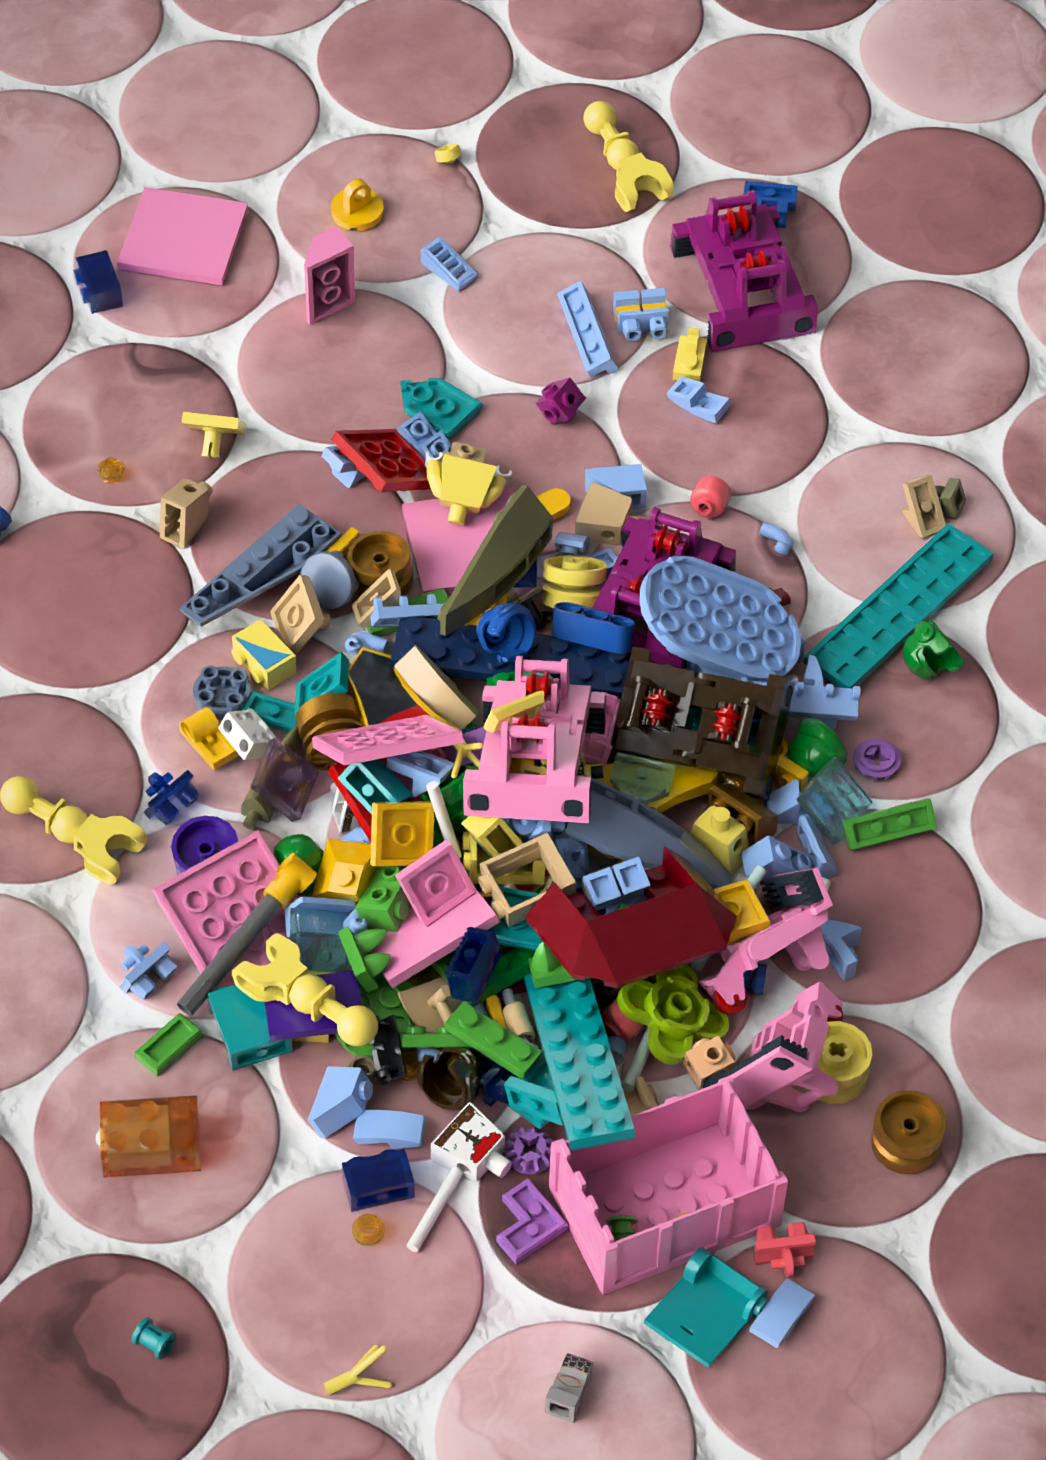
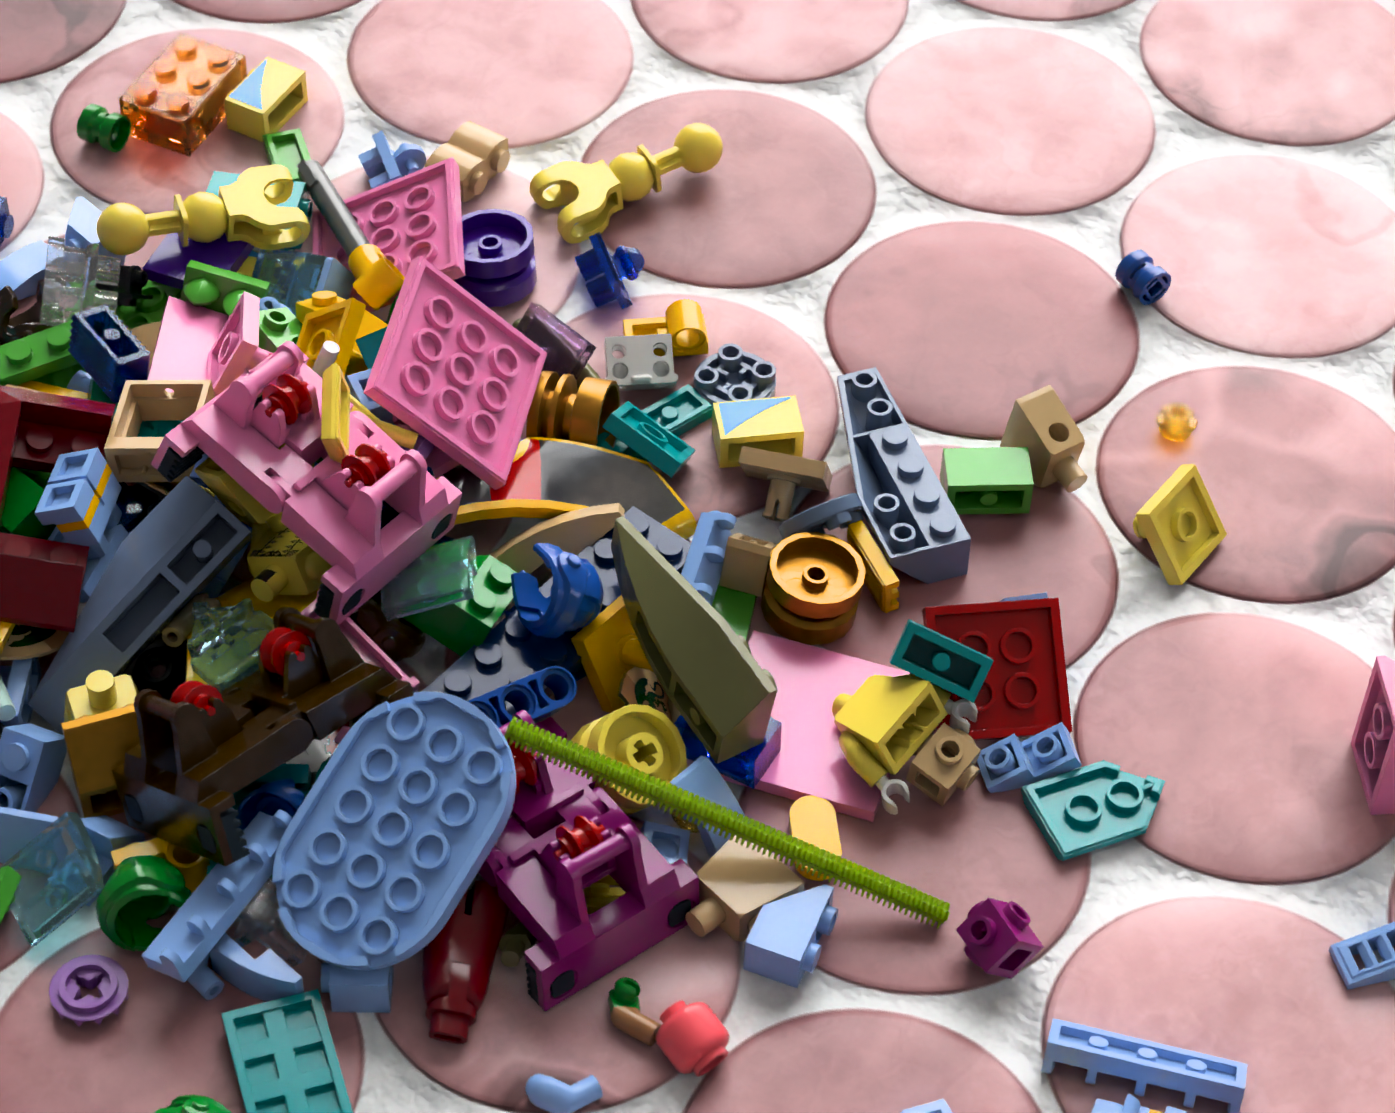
camera: 120 degrees right, 5 degrees down
(108, 928) = (478, 154): none -> tan brick
(119, 1081) = (266, 99): none -> light yellow brick
(216, 1167) = (99, 126): none -> green wheel
(232, 525) = (983, 477): none -> brick
(420, 461) = (941, 660): none -> teal brick
(421, 1029) = (72, 280): none -> clear hips
(596, 509) = (725, 820): none -> lime axle
(715, 530) = (626, 1012): none -> arm

